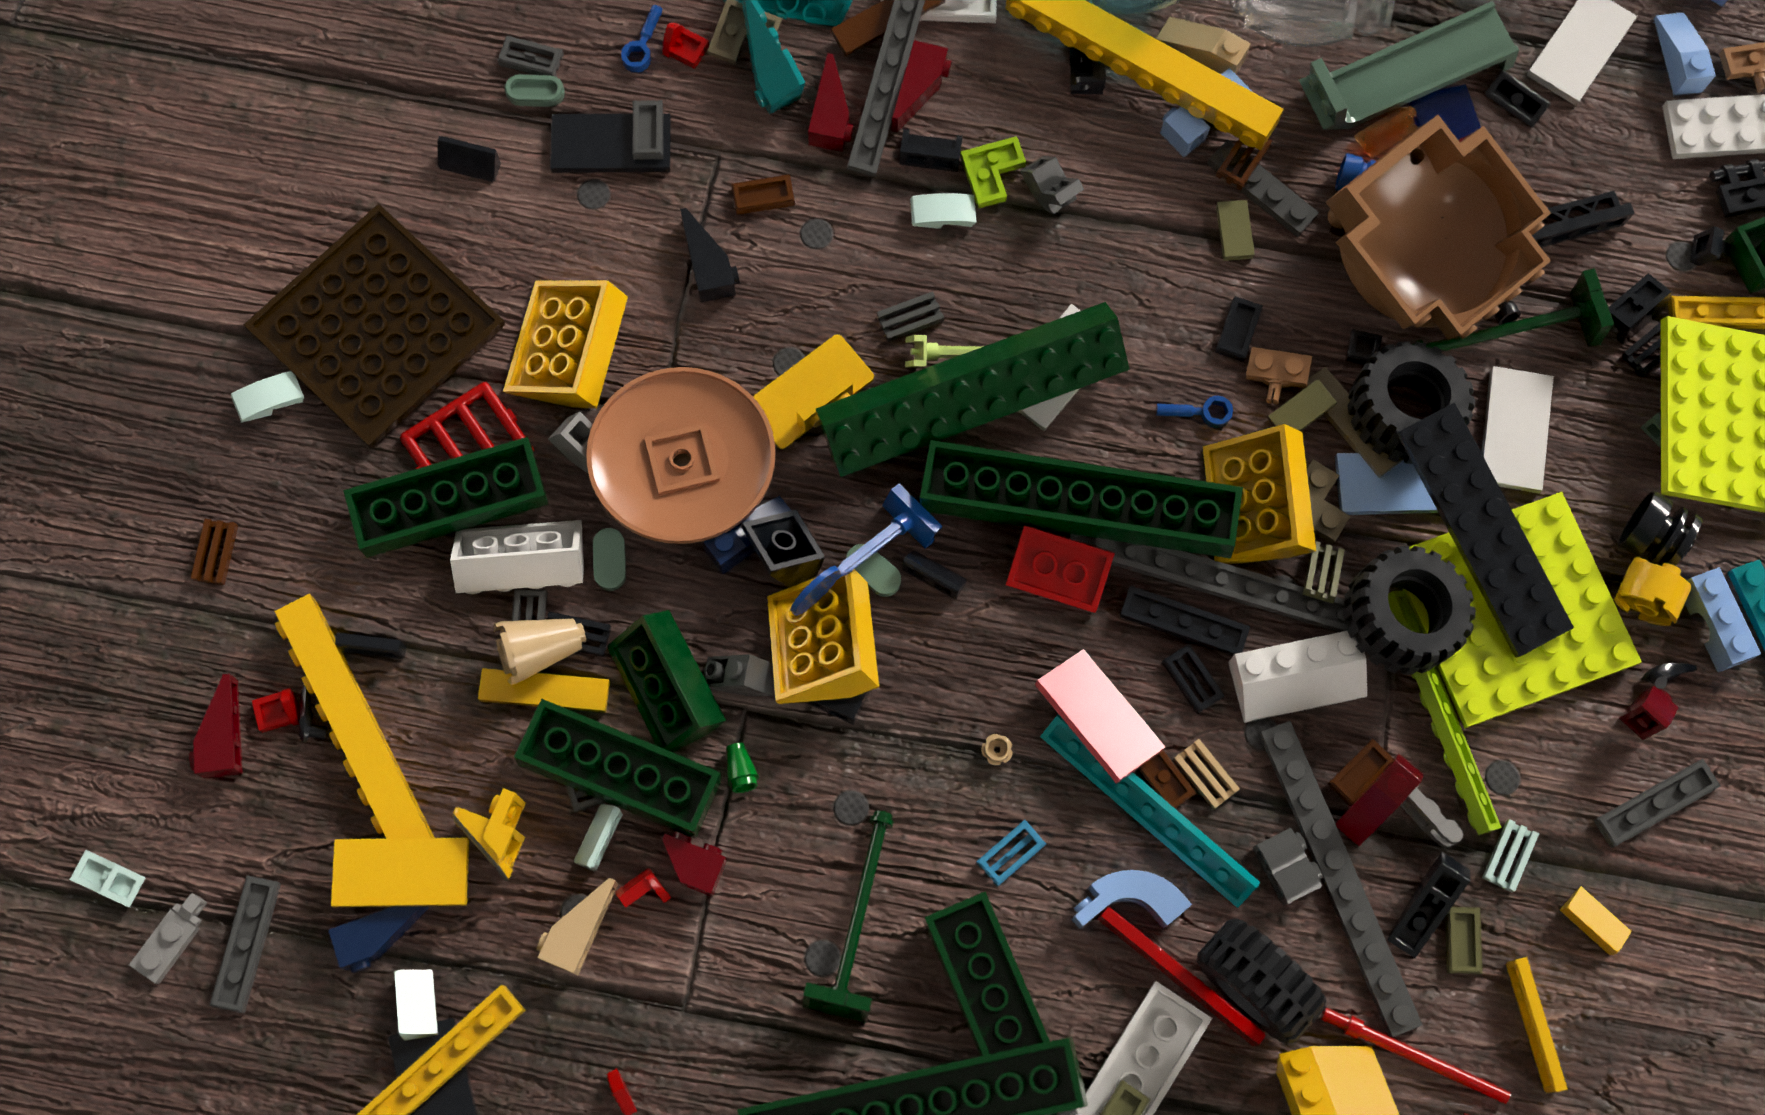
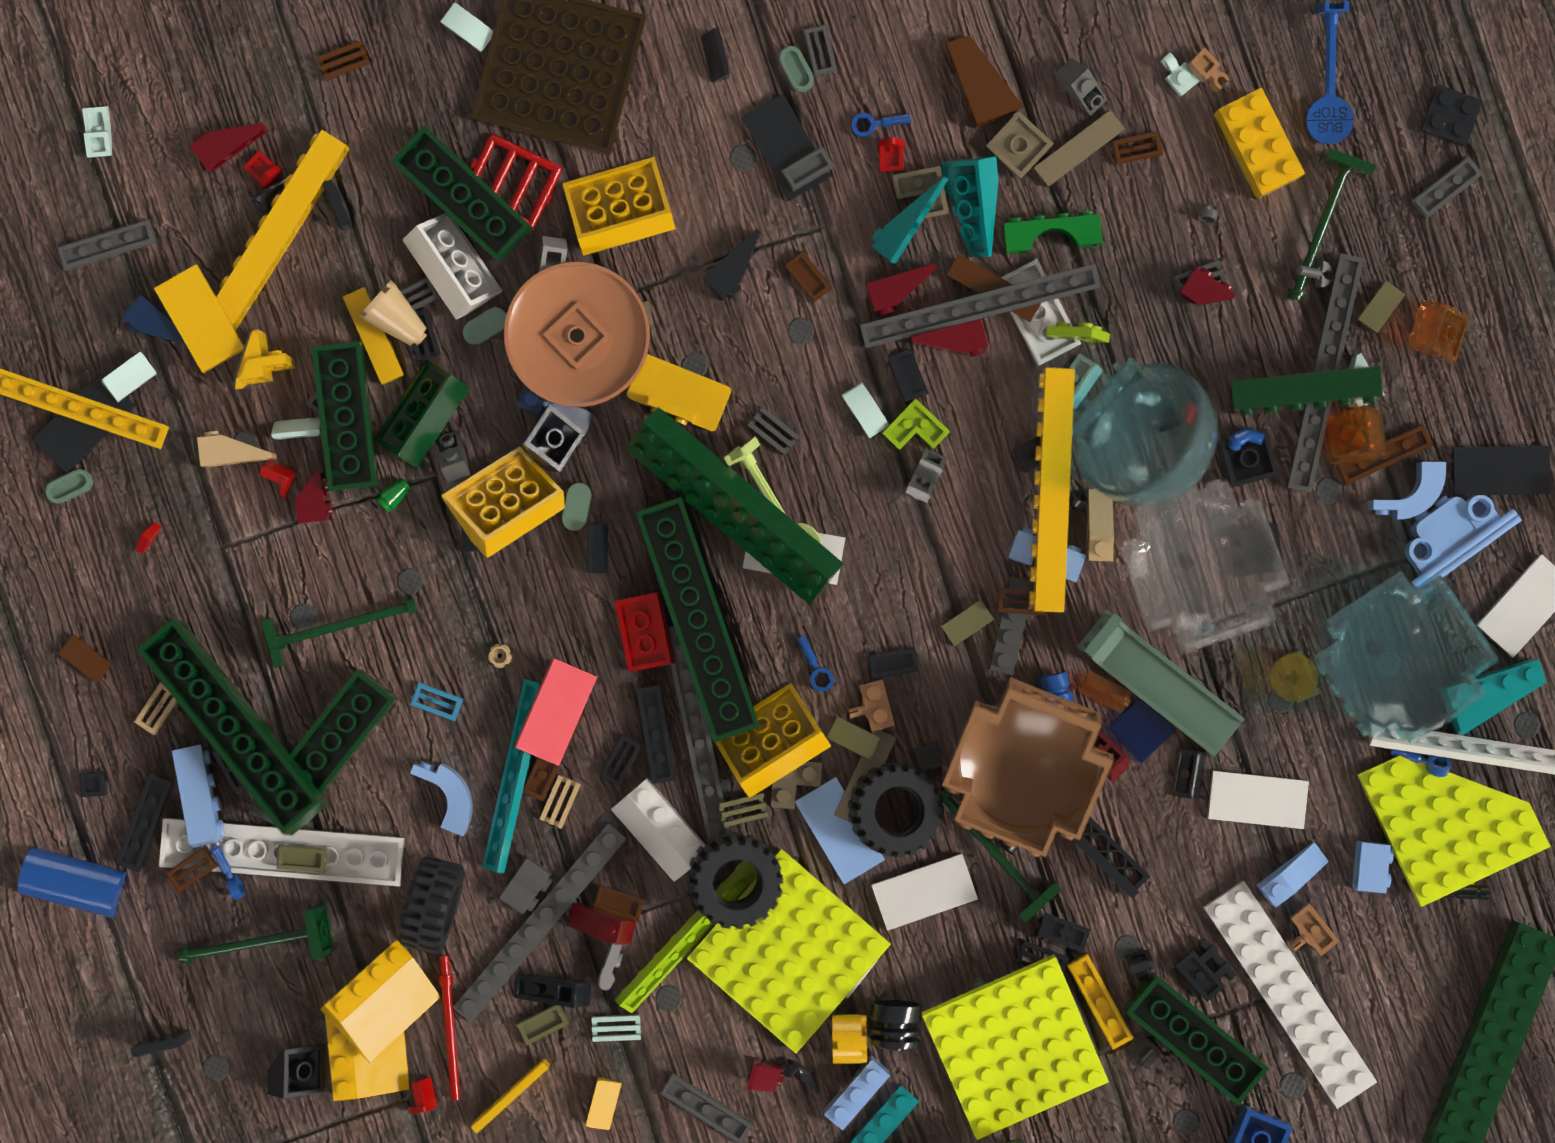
camera: 65 degrees right, 15 degrees up
(169, 939) = (82, 195): light grey hinge -> none
(908, 516) = (623, 511): blue piece -> none
(1181, 977) = (417, 840): red tile -> none
(1485, 530) = (823, 903): black plate -> none

